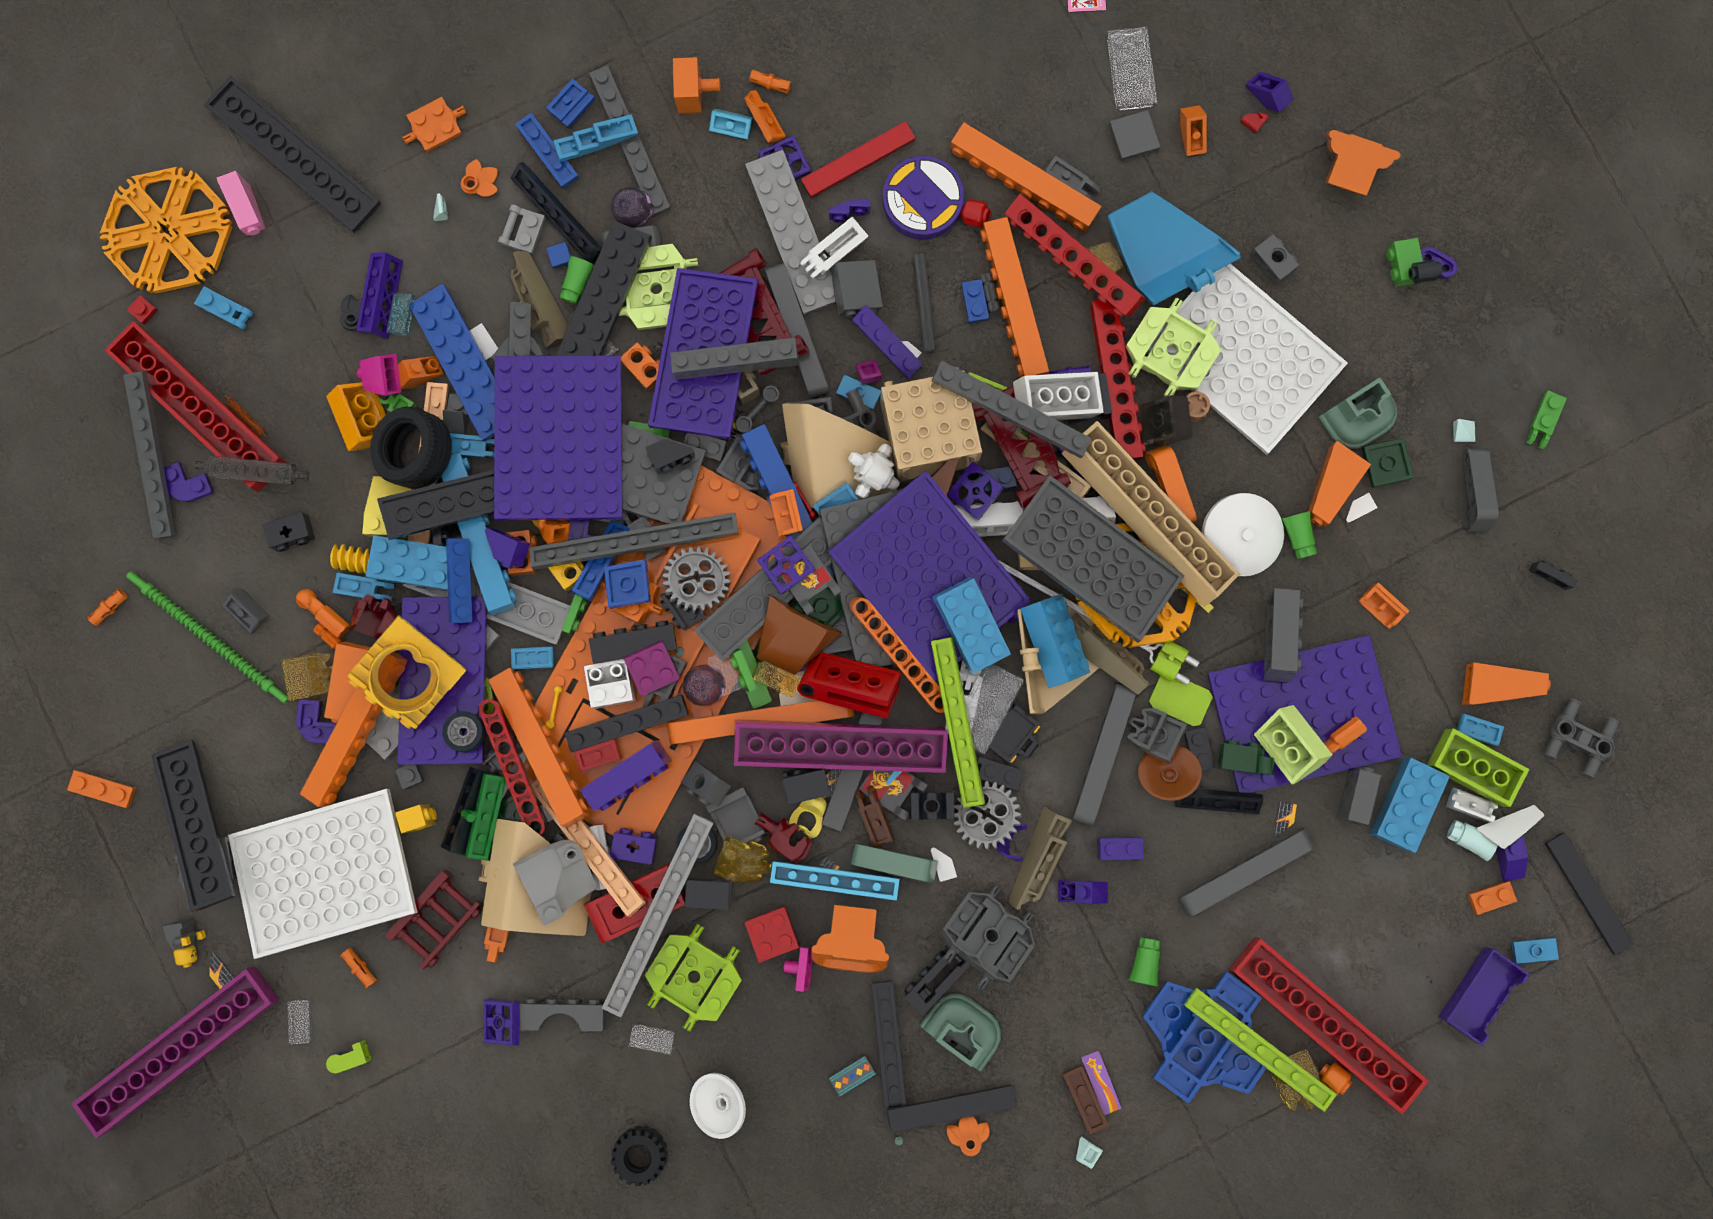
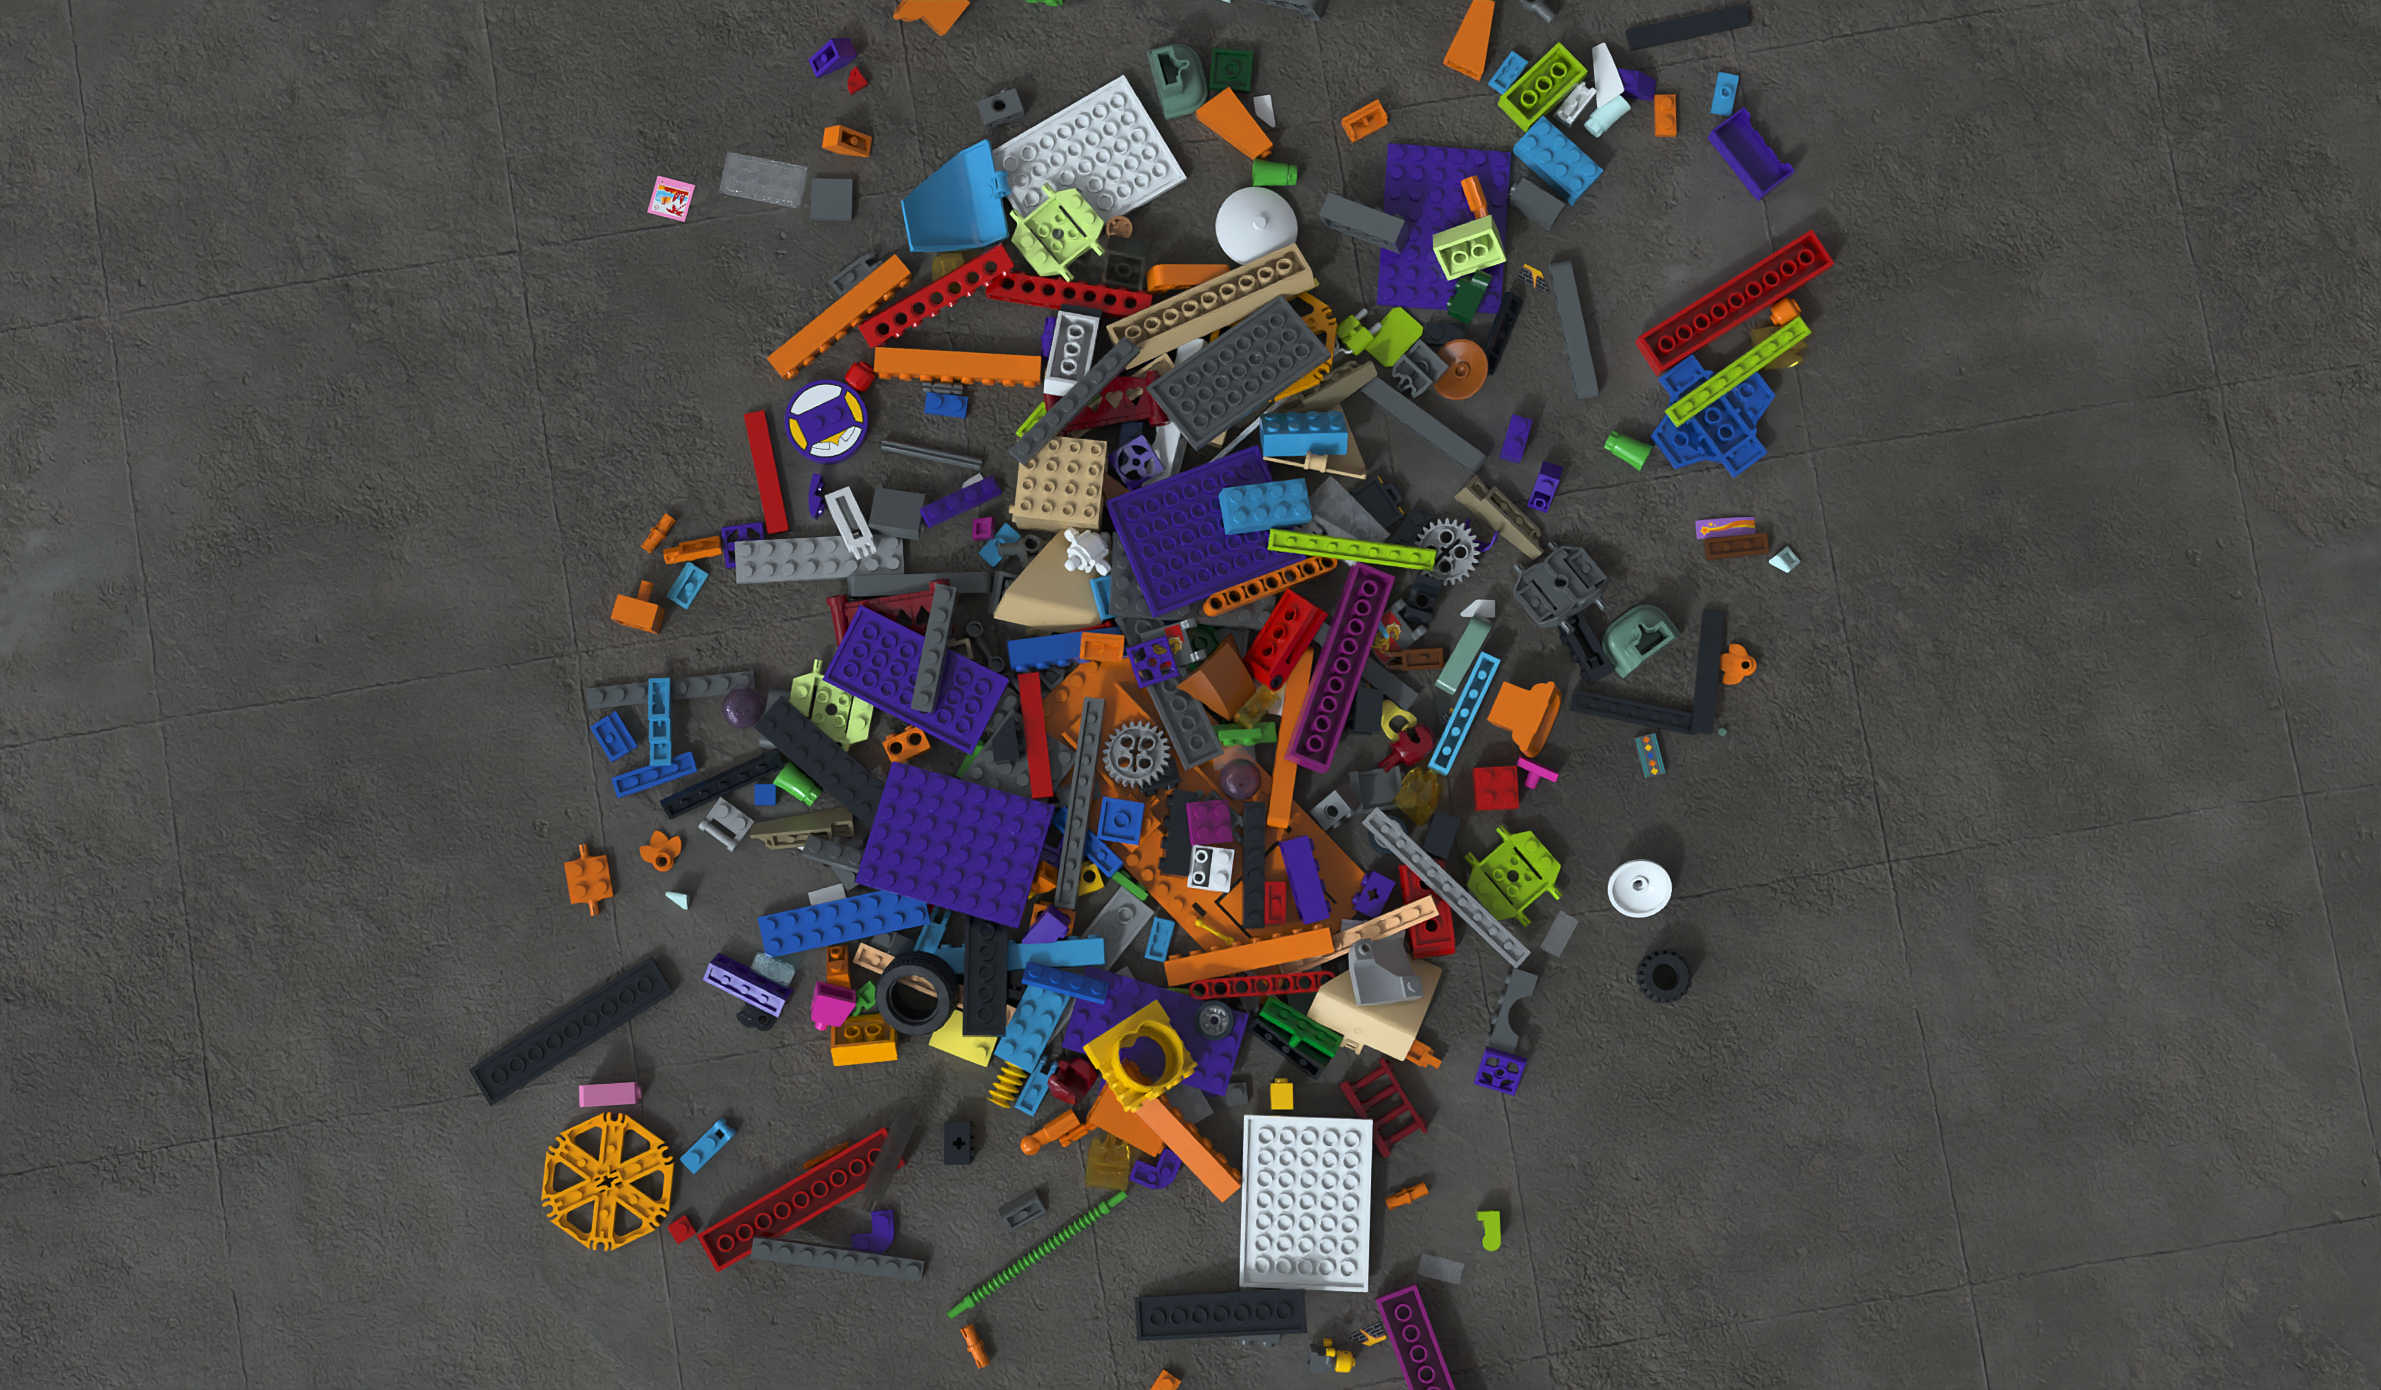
camera: 75 degrees left, 0 degrees up
(684, 479) = (1035, 735): none -> red tile

